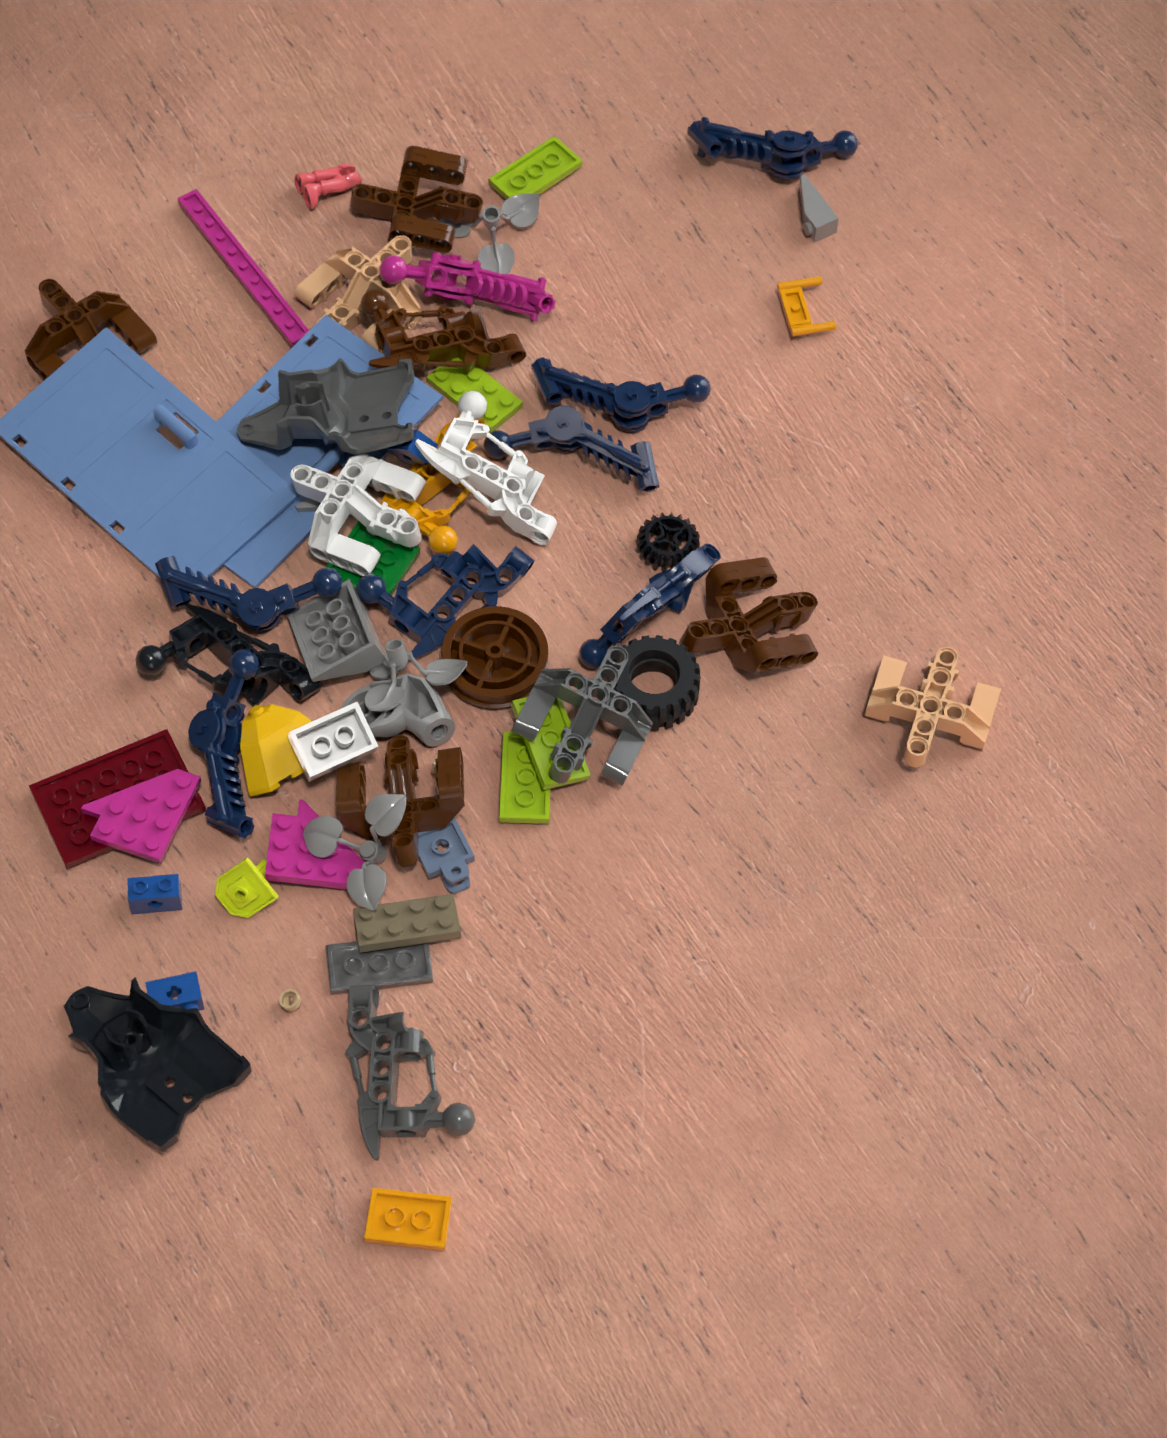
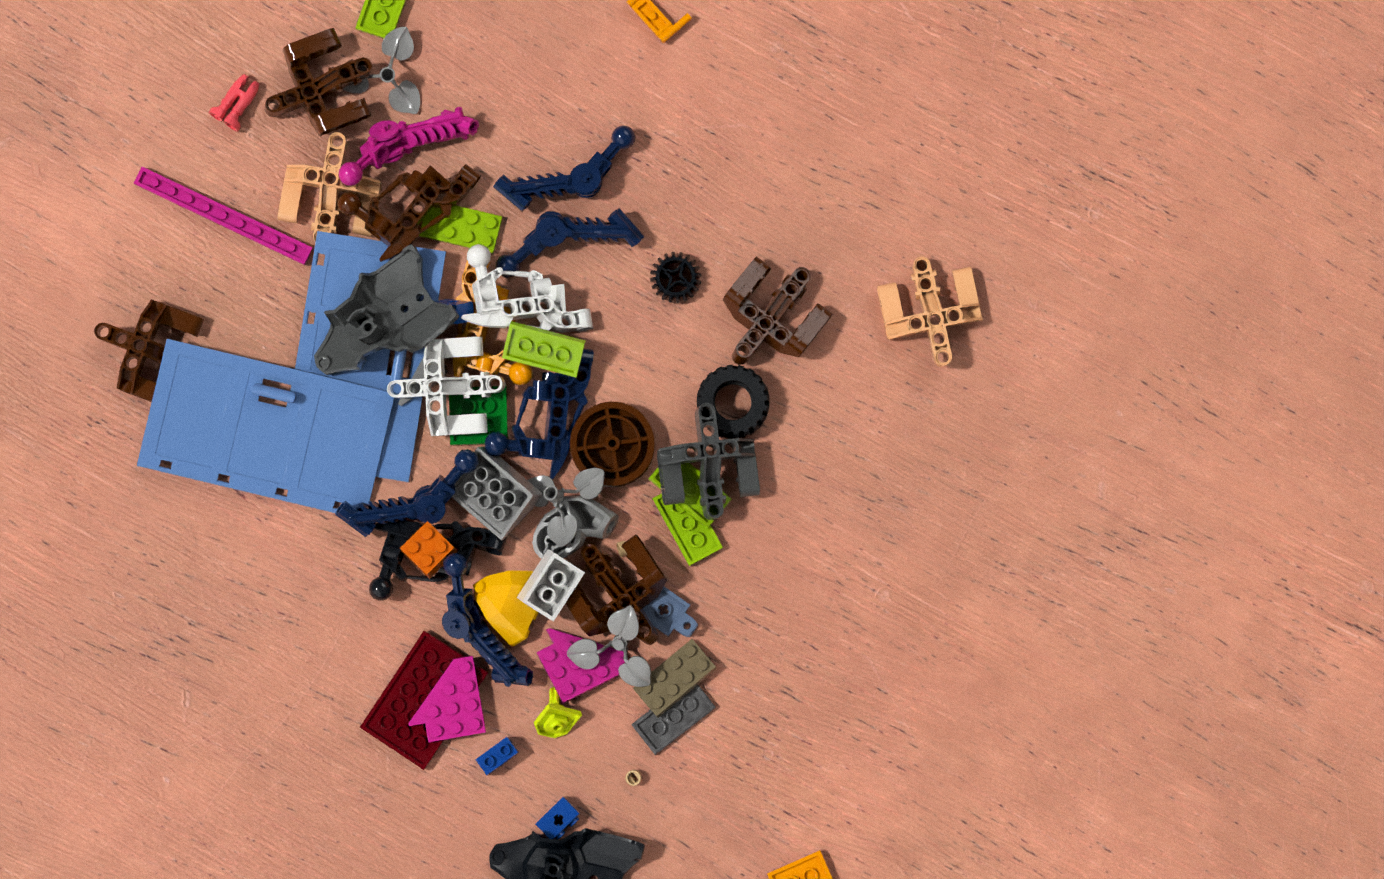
camera: 25 degrees left, 25 degrees up
(222, 637) = (427, 549): none -> orange brick
(407, 1044) = (743, 822): dark grey piece -> none
(482, 520) = (543, 349): none -> lime plate
(665, 590) = (700, 342): dark blue piece -> none

